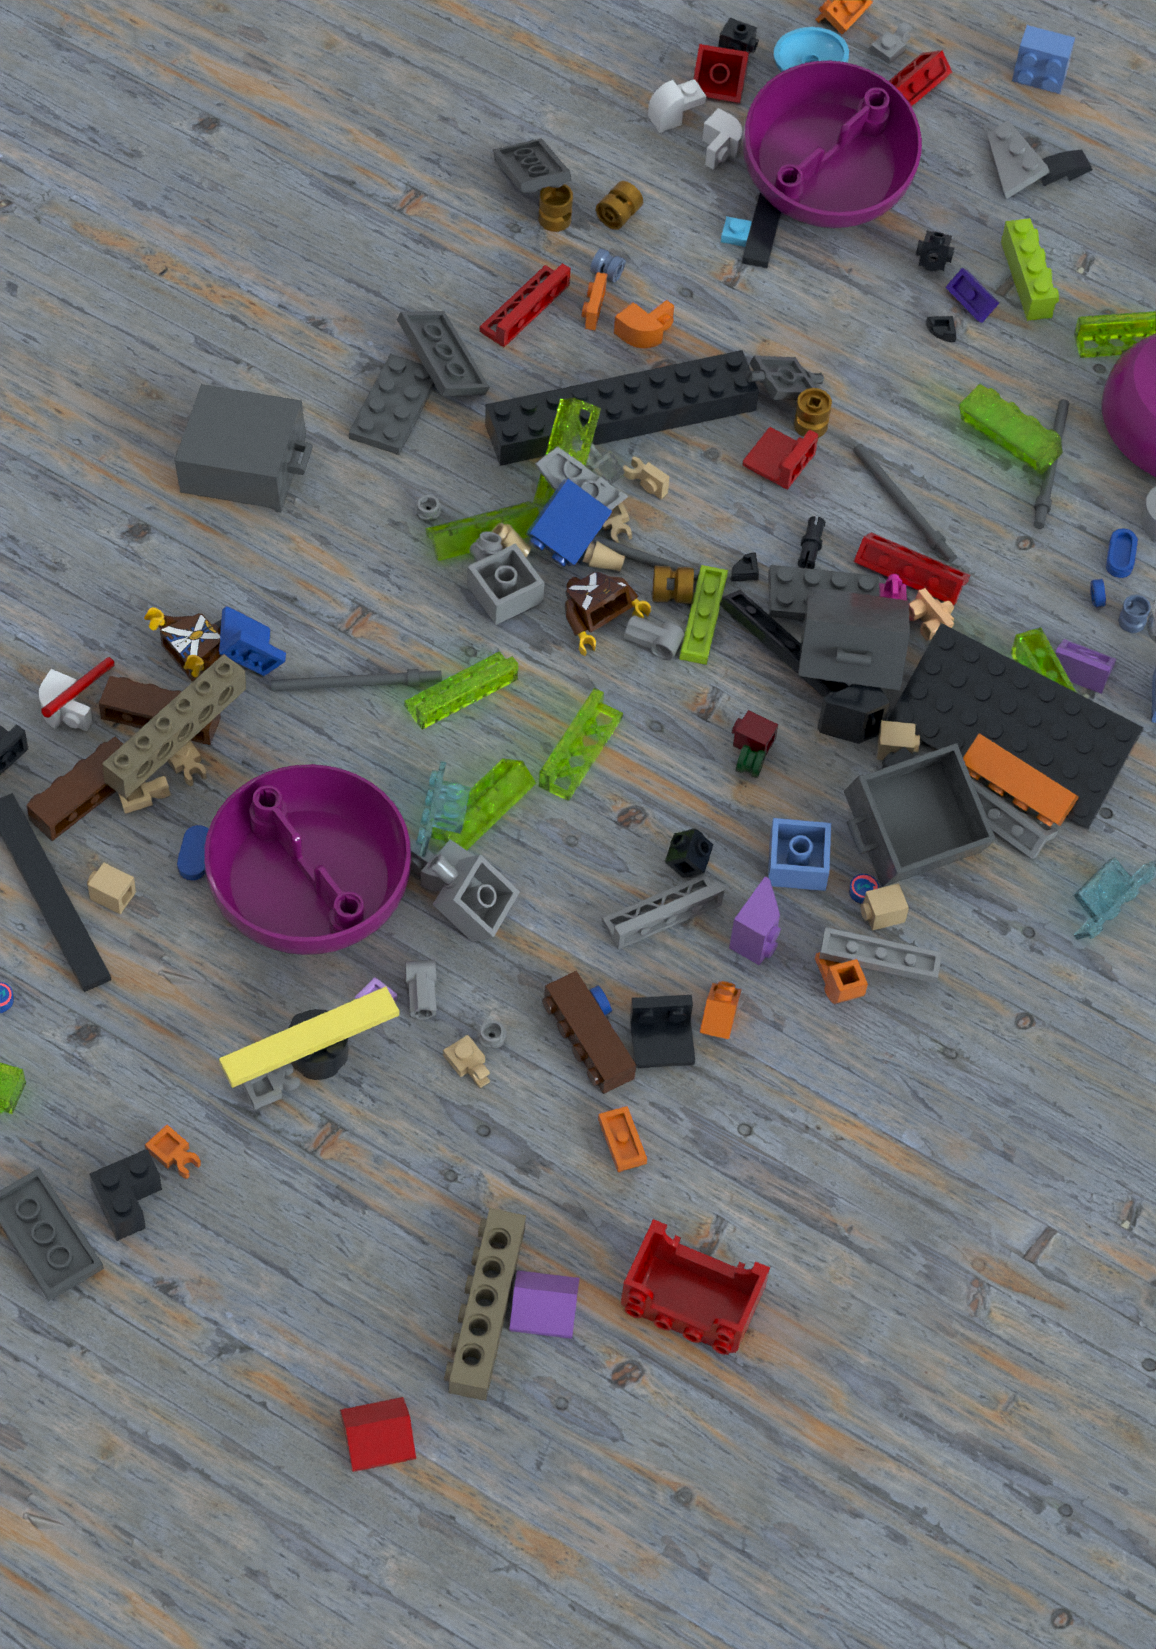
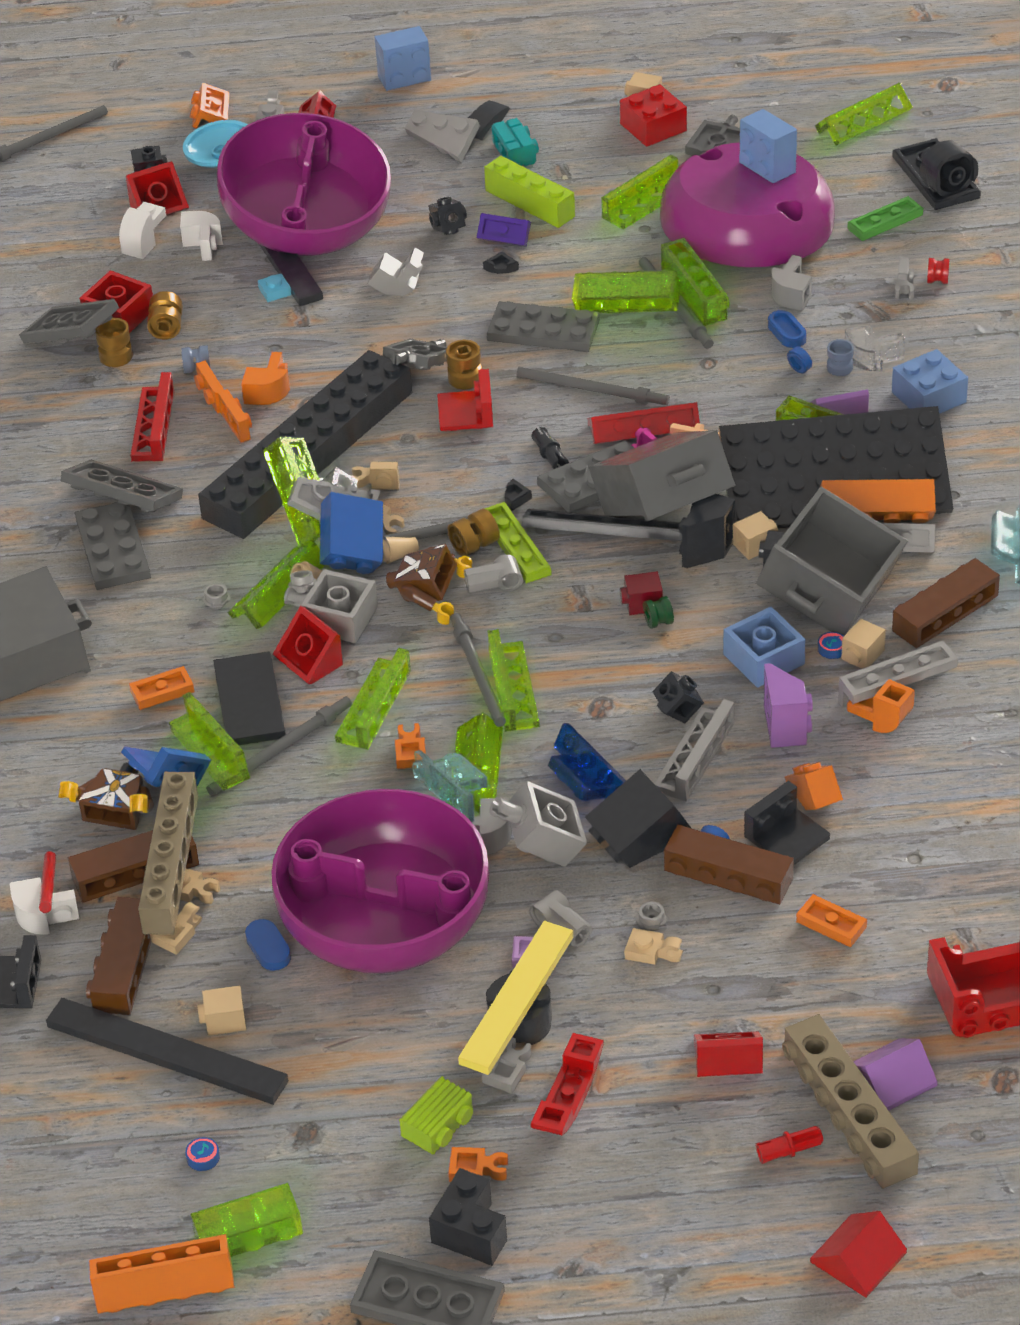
camera: 30 degrees left, 15 degrees down
(181, 1090) = (437, 1115): none -> lime brick
(295, 1139) = (570, 1085): none -> red slope
(299, 646) = (204, 735): none -> clear neon green fence
(314, 566) = (161, 687): none -> orange plate
(371, 621) = (249, 698): none -> black tile
(410, 1305) = (789, 1144): none -> red axle
(439, 1192) = (728, 1053): none -> red slope
(448, 751) = (407, 745): none -> orange plate
(450, 607) = (309, 647): none -> red slope
(554, 944) = (635, 820): none -> black slope
(557, 871) = (583, 766): none -> clear blue bracket
(581, 677) = (464, 637): none -> dark grey bar
(588, 349) = (234, 416): none -> orange plate
(592, 168) = (129, 294): none -> red brick
(839, 286) = (394, 277): none -> light grey brick
(919, 415) = (543, 326): none -> dark grey plate
(990, 914) = (945, 602): none -> reddish brown brick
(1063, 209) = (514, 142): none -> teal brick
(1078, 456) = (697, 283): none -> clear neon green brick

